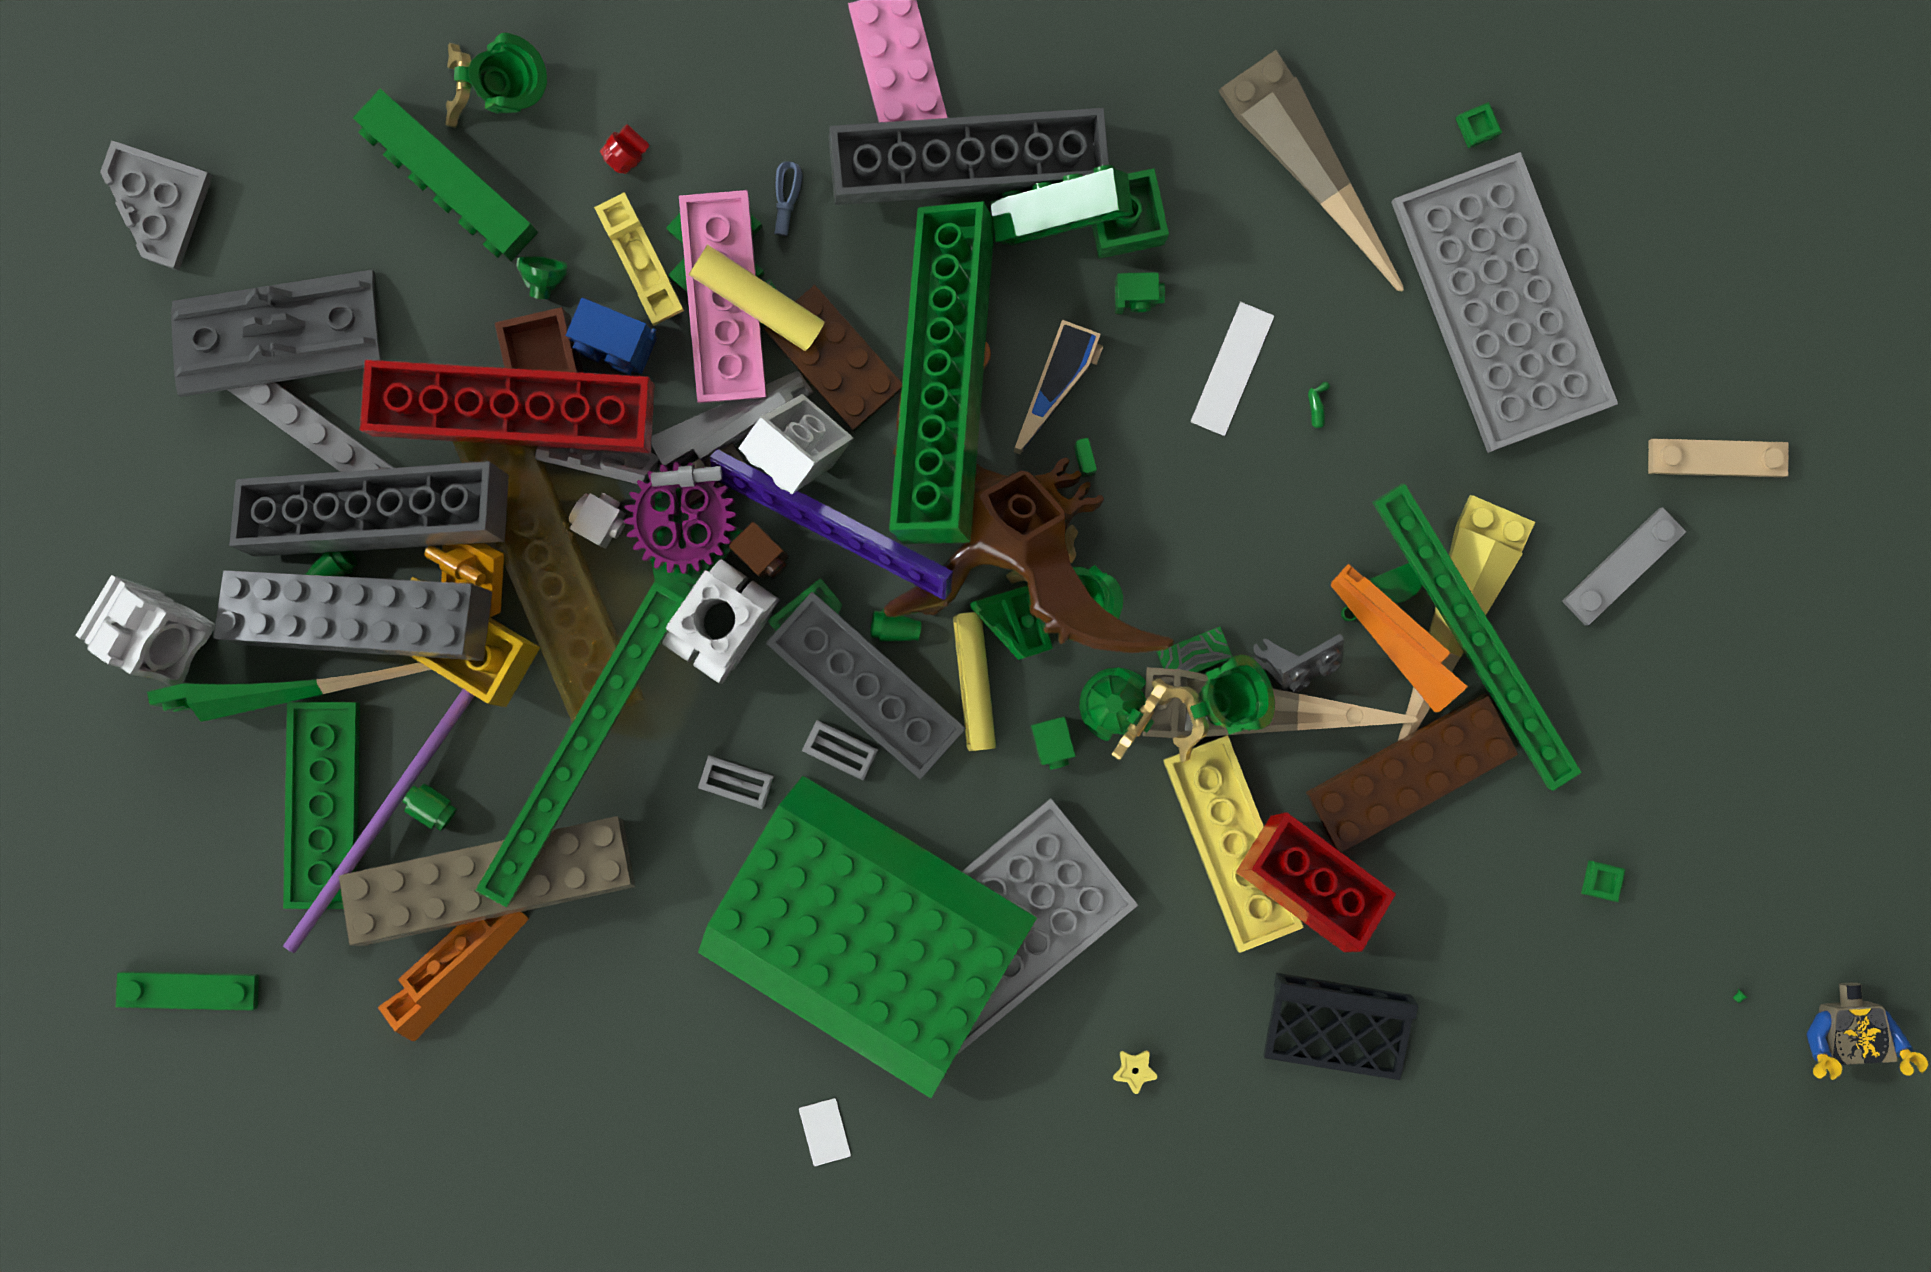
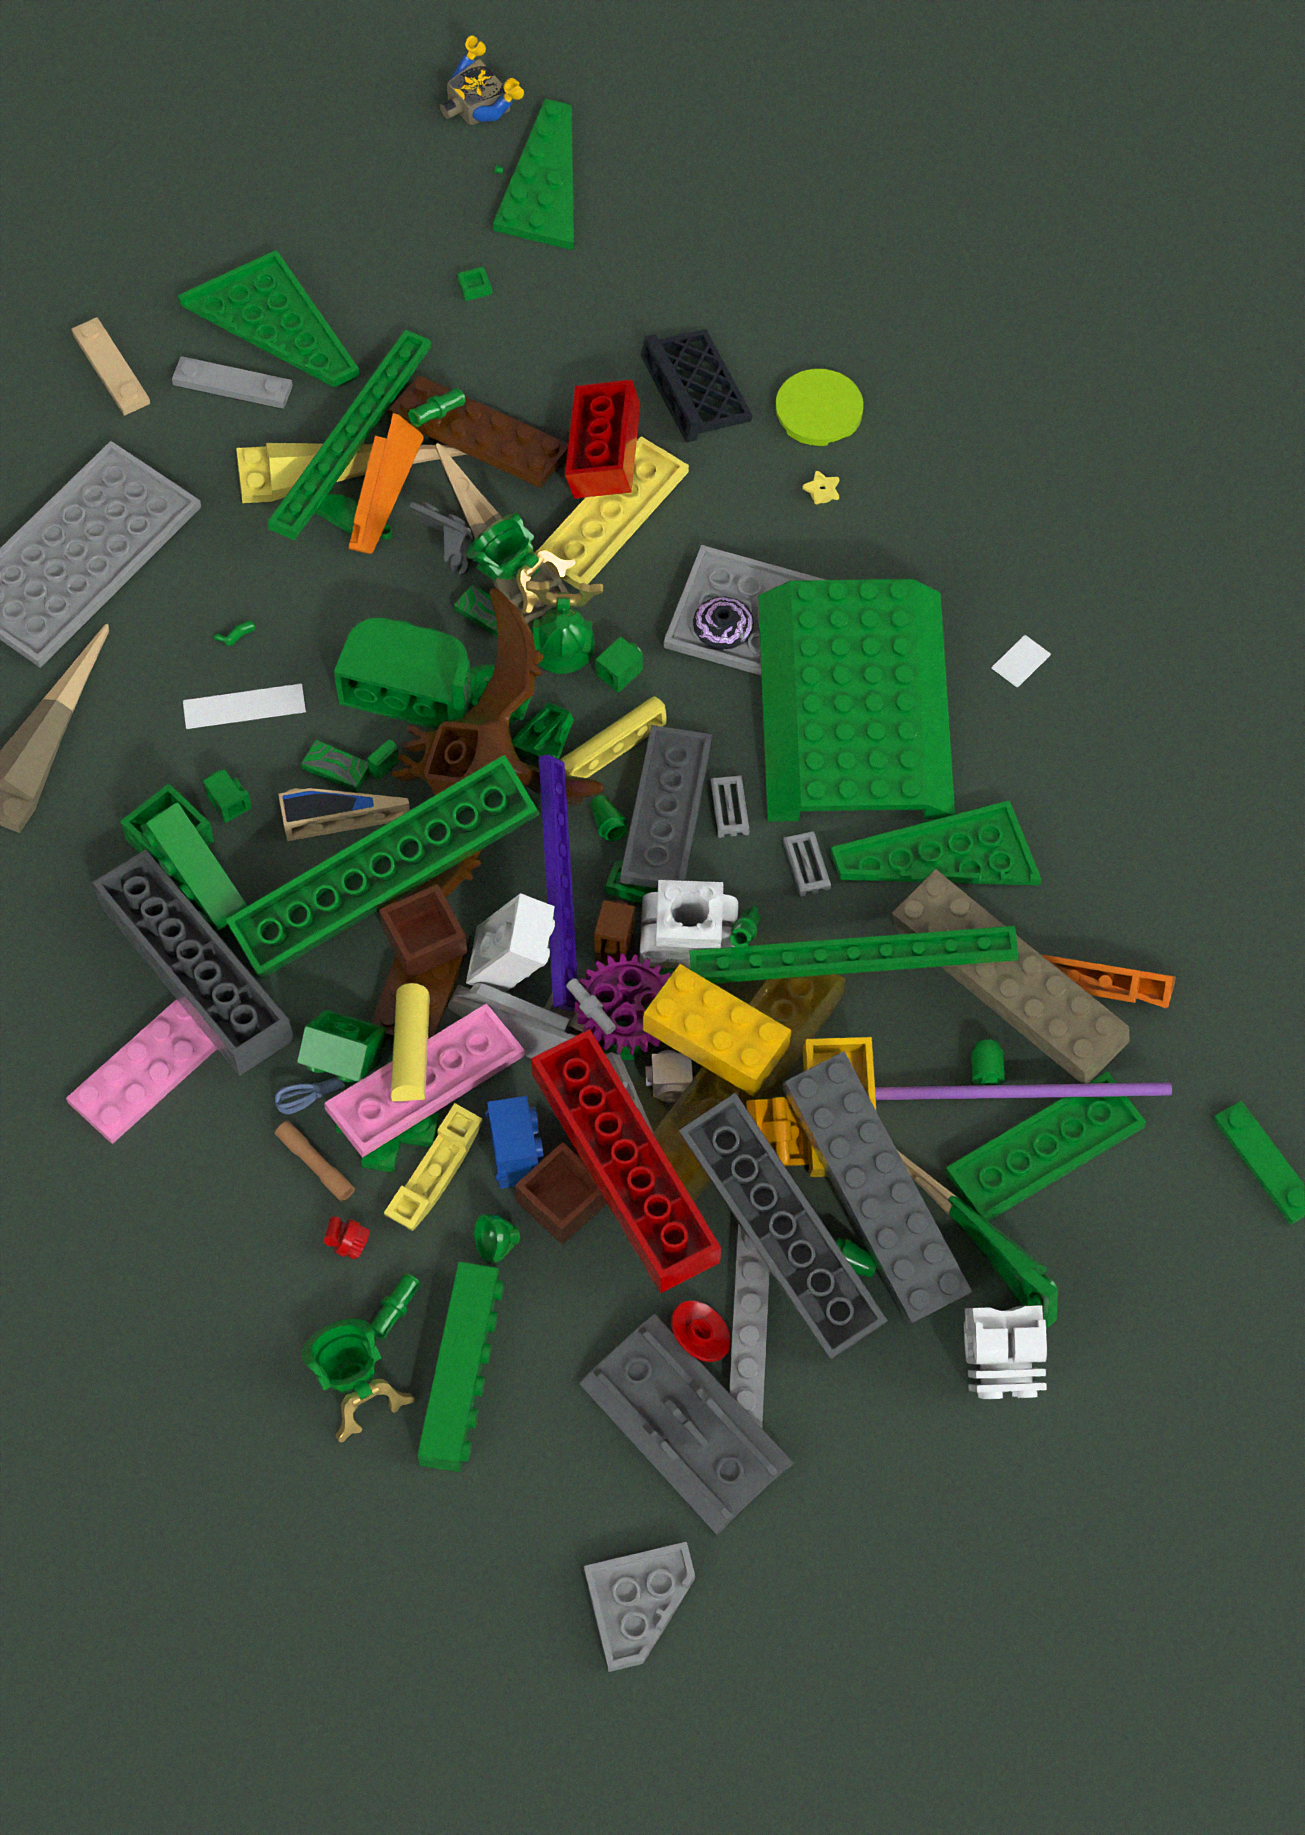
camera: 120 degrees left, 25 degrees down
(331, 397) = (701, 1331): none -> red dish
(536, 154) = (394, 1306): none -> green pin
(584, 569) = (716, 1030): none -> yellow brick
(657, 932) = (963, 847): none -> green wing
(678, 666) = (745, 927): none -> green axle
(695, 170) = (329, 1175): none -> medium nougat piece
(799, 241) = (341, 1046): none -> brick
(863, 375) = (423, 931): none -> copper piece
(1030, 850) = (723, 632): none -> dish
(1089, 553) = (461, 689): none -> green tile
(1110, 413) = (336, 766): none -> green tile
(1161, 527) = (399, 671): none -> green brick
(1235, 1133) = (819, 406): none -> lime tile
(1454, 739) = (436, 407): none -> green pin
(1683, 1022) = (541, 189): none -> green wing
(1691, 652) = (273, 312): none -> green wing

